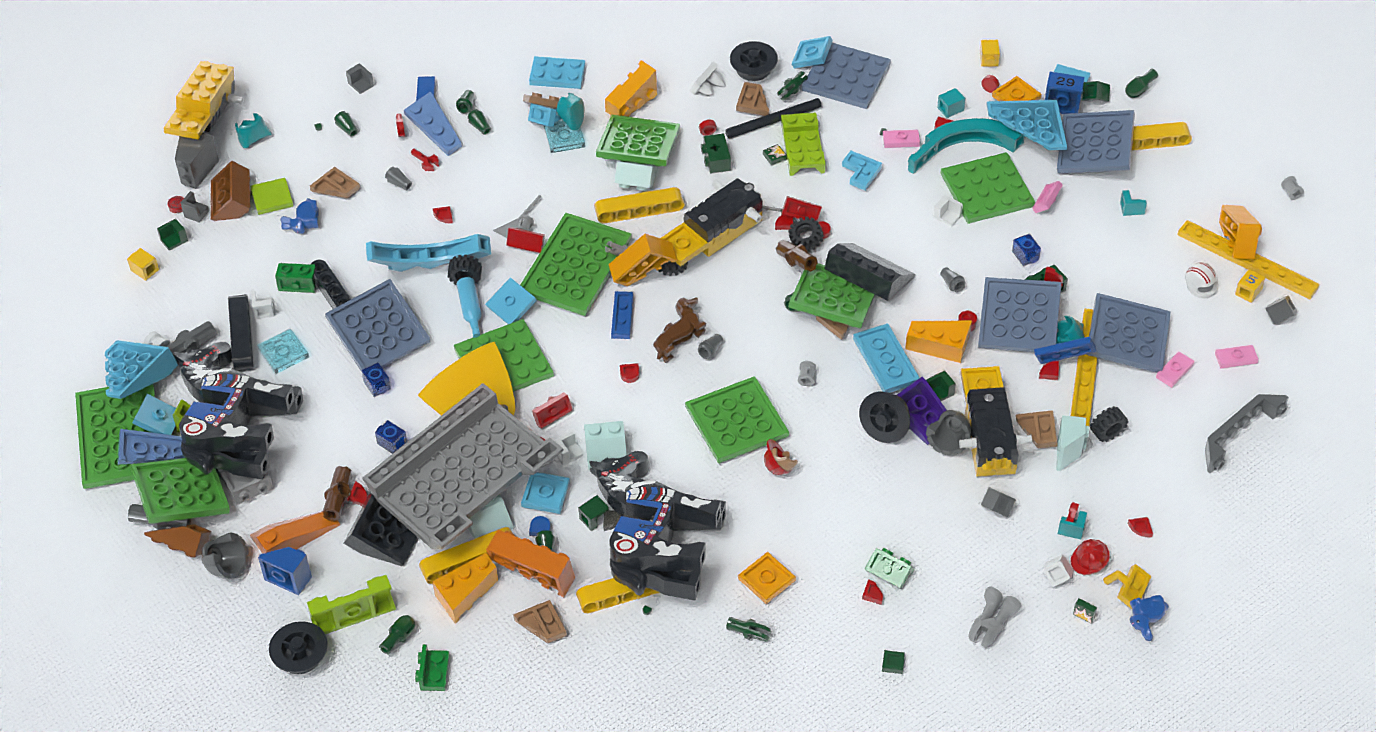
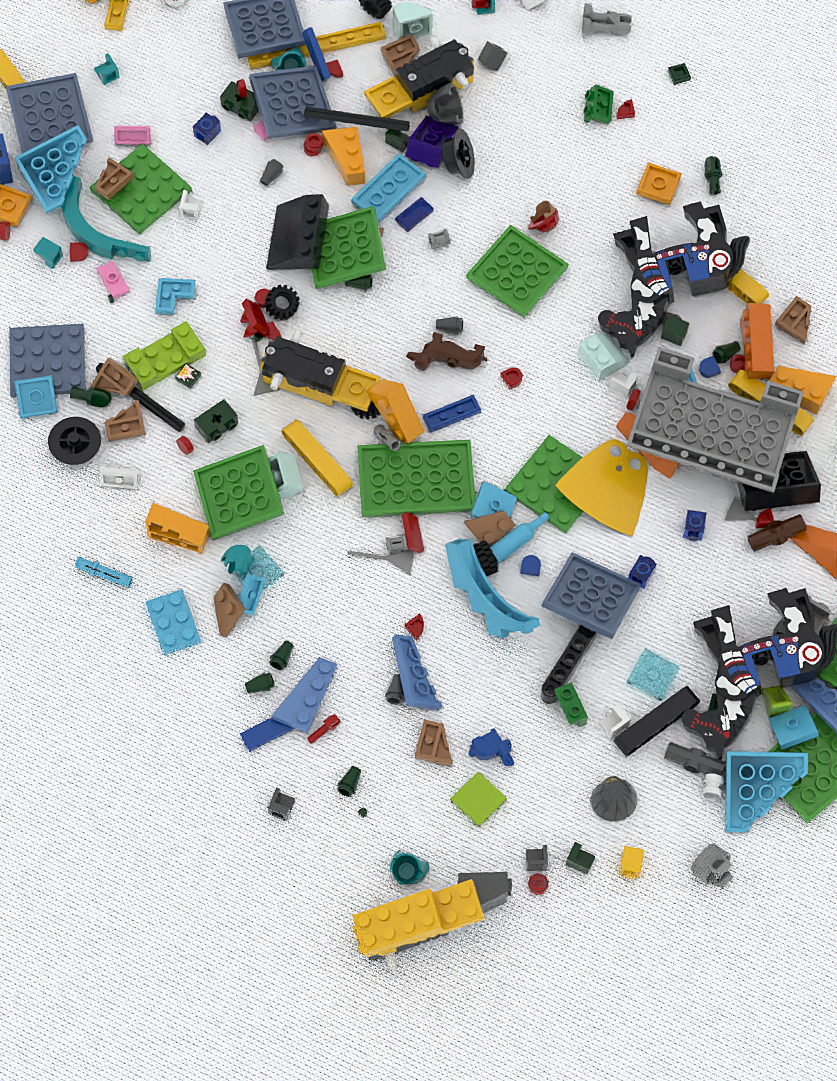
camera: 120 degrees left, 15 degrees up
(96, 307) = (710, 861): none -> light grey piece
(196, 276) = (614, 799): none -> dark grey hair
(230, 192) = (500, 836): dark orange slope -> none
(396, 190) = (413, 675): none -> medium blue wing
(427, 161) = (354, 682): red bar -> none
(440, 309) = (530, 565): none -> blue tile
(490, 289) = (490, 527): none -> medium nougat wing
(552, 410) = (581, 414): red tile -> none
(632, 42) = (83, 564): none -> medium azure pin
(796, 255) = (317, 293): reddish brown piece -> none
(803, 99) = (114, 378): none -> medium nougat wing
(847, 370) = (414, 214): none -> clear blue tile
(968, 353) = (358, 119): none -> black axle
(1001, 161) = (112, 179): none -> medium nougat wing

